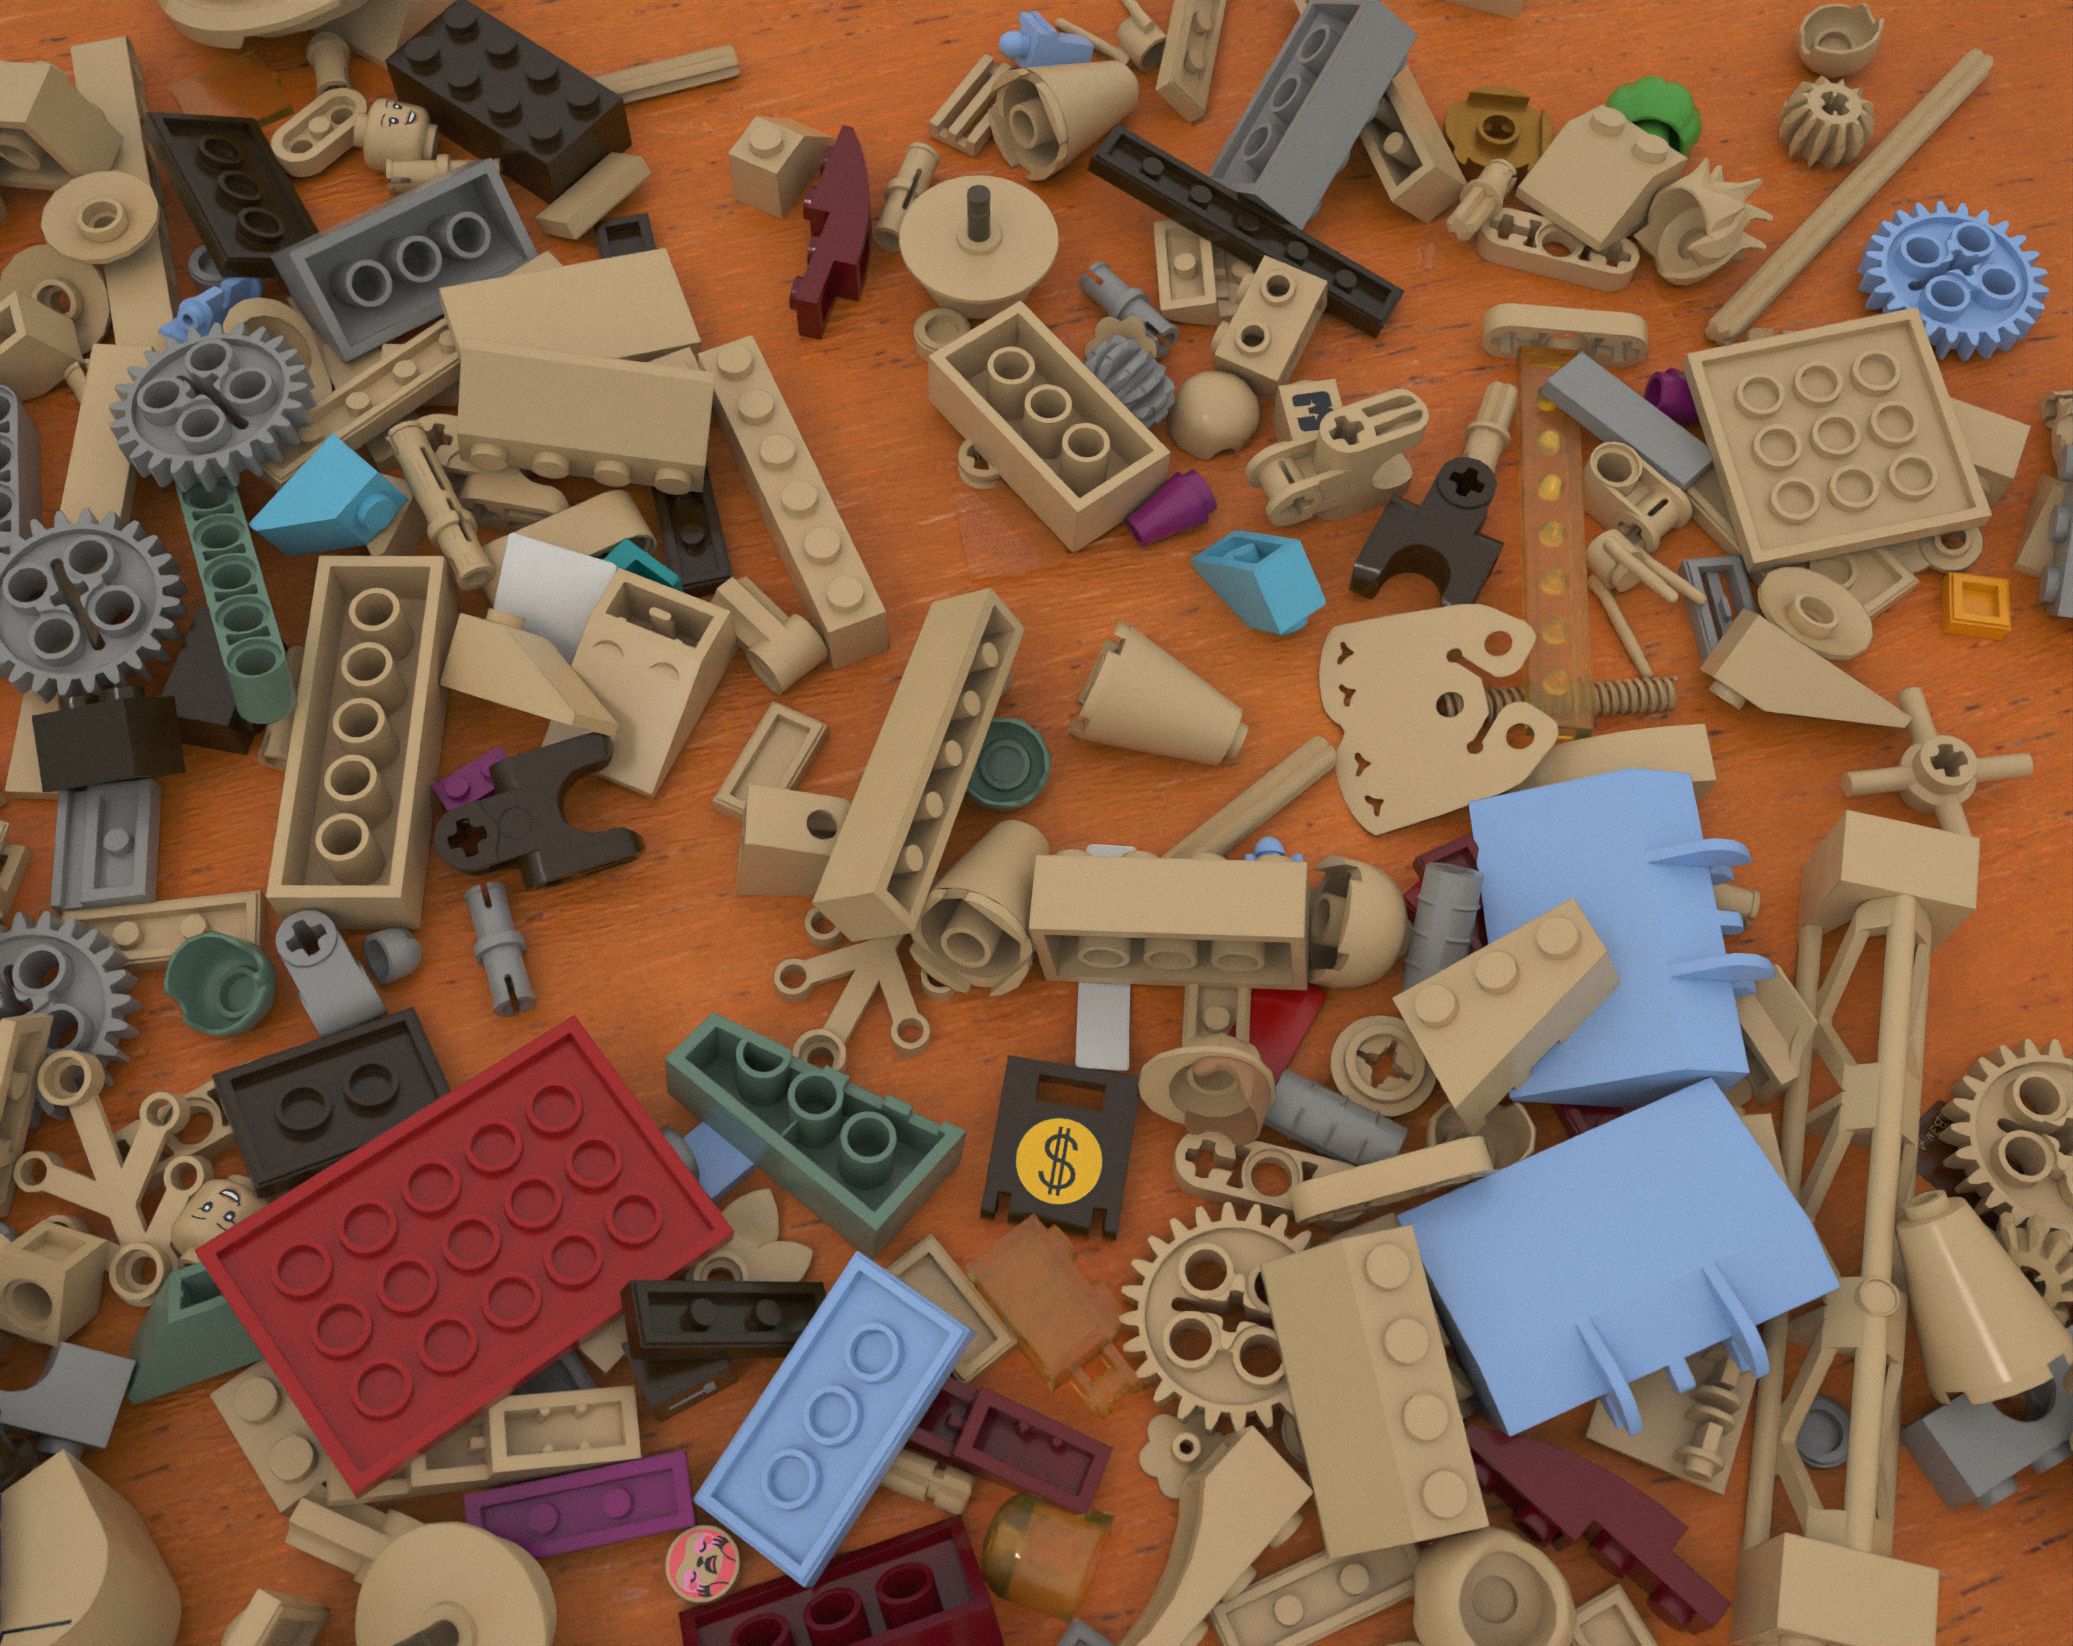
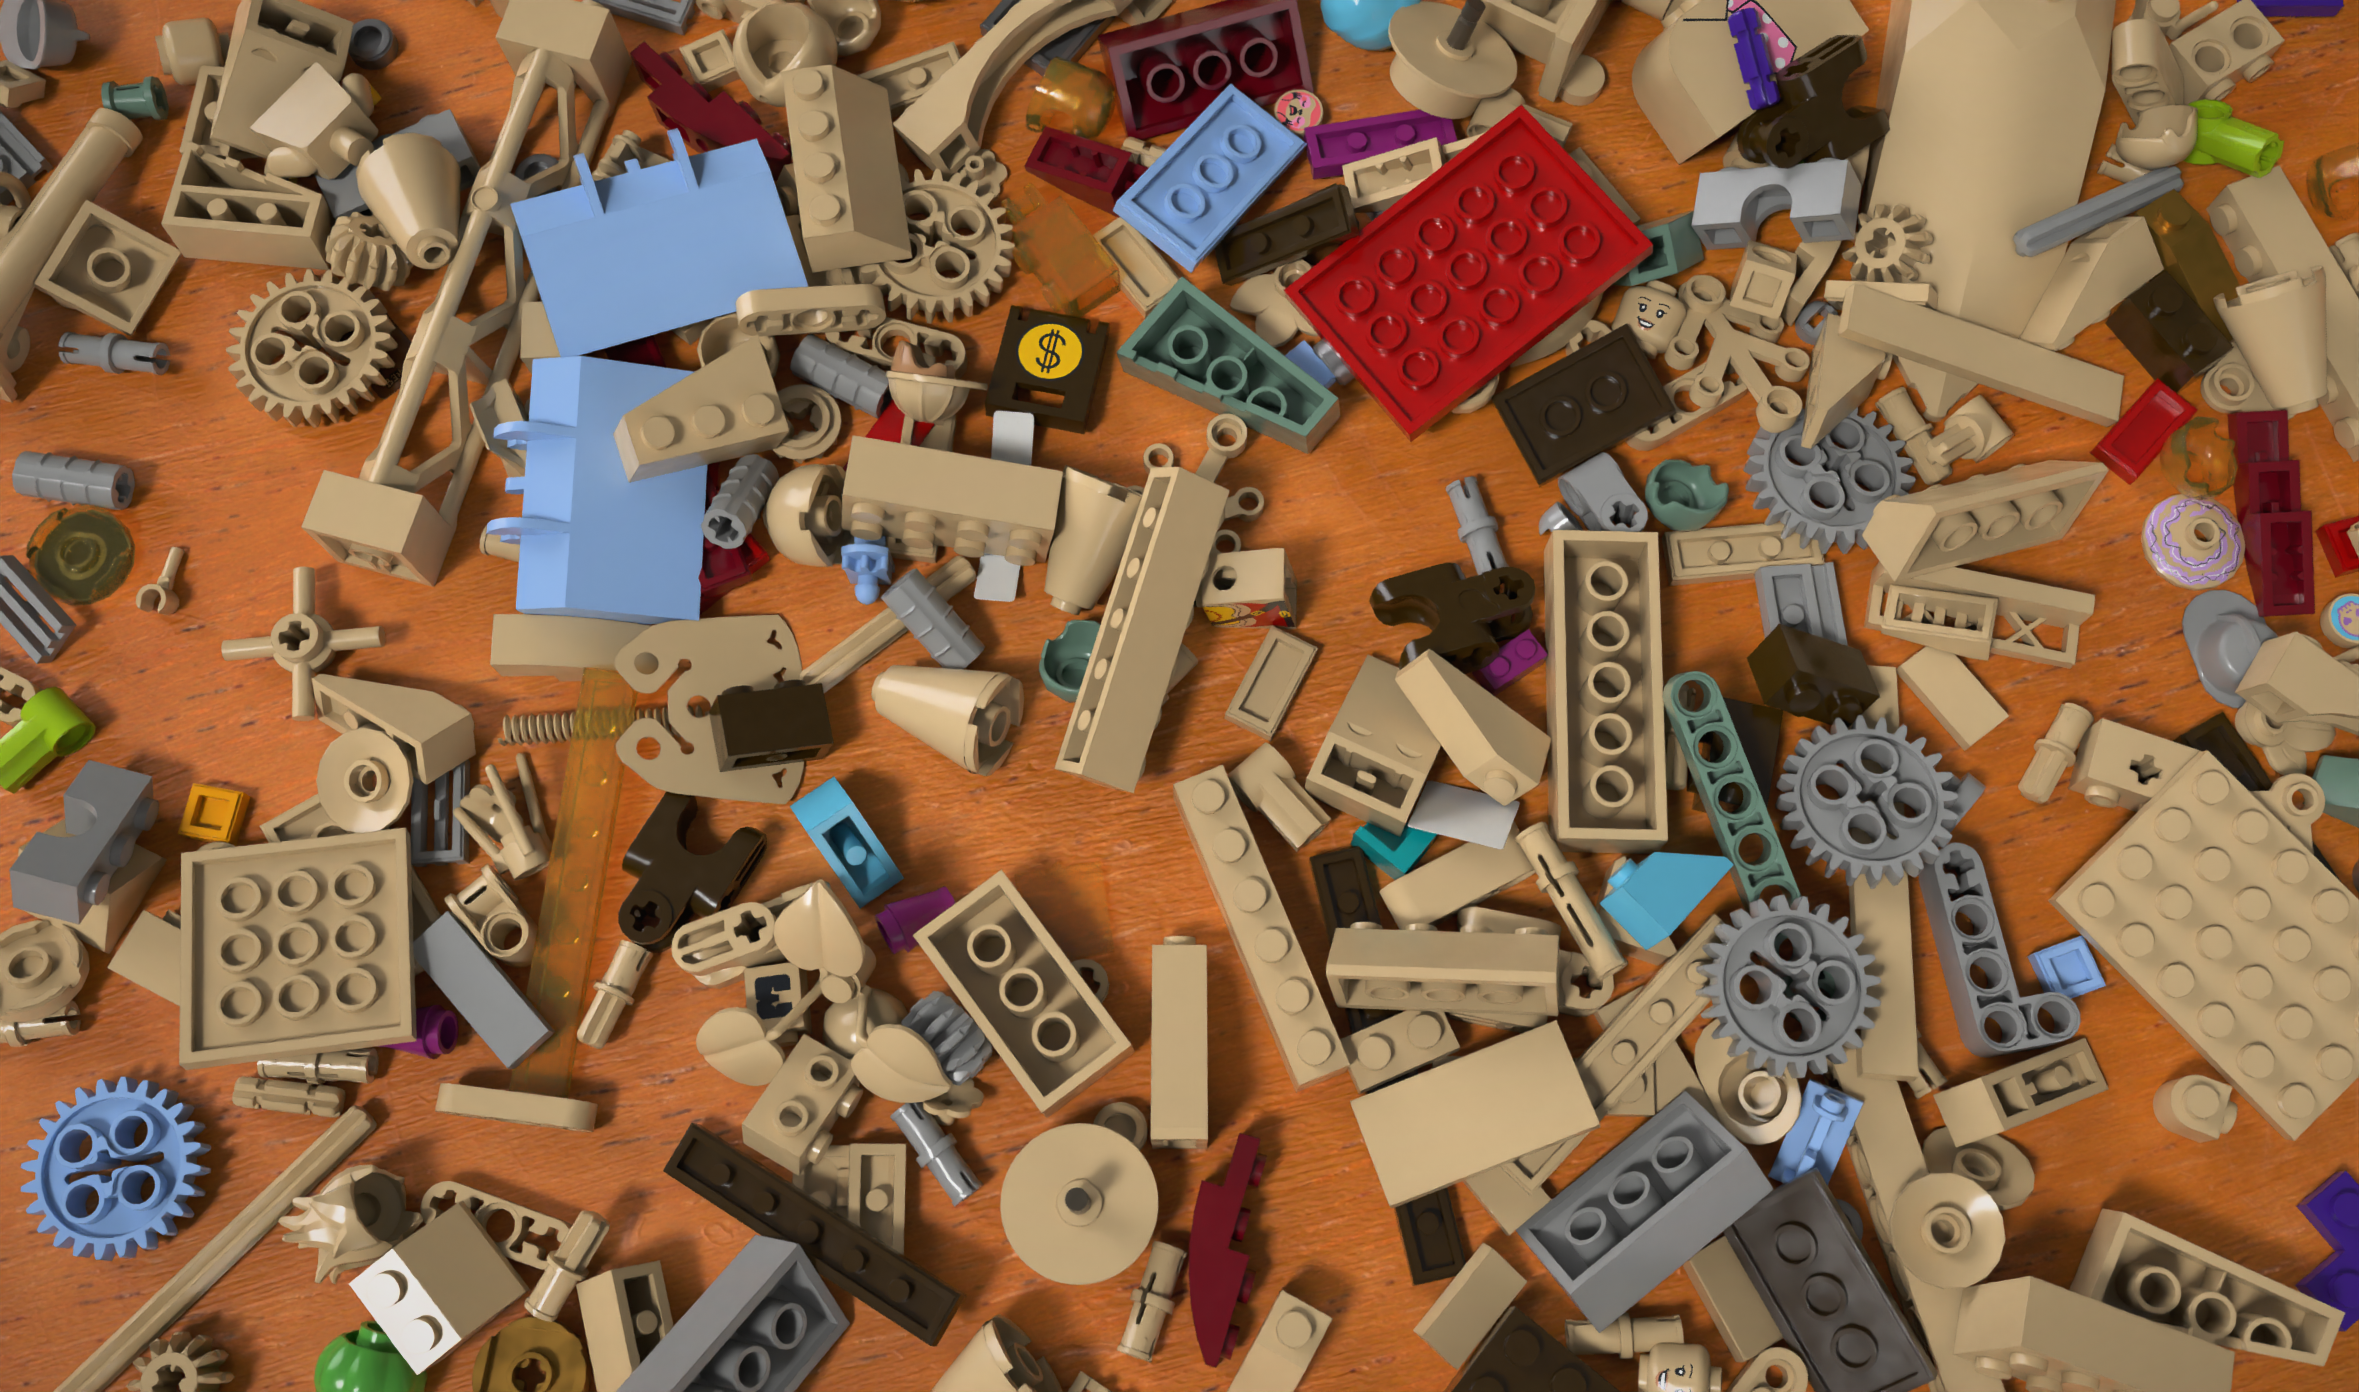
camera: 175 degrees left, 10 degrees up
(327, 191) = (1732, 1300): none -> tan slope
(878, 377) = (1179, 1045): none -> tan slope
(1183, 800) = (932, 621): none -> light grey axle
(1243, 428) = (822, 936): none -> tan plant
(1361, 680) = (770, 725): none -> dark brown brick
(1659, 609) = (486, 811): none -> tan plant

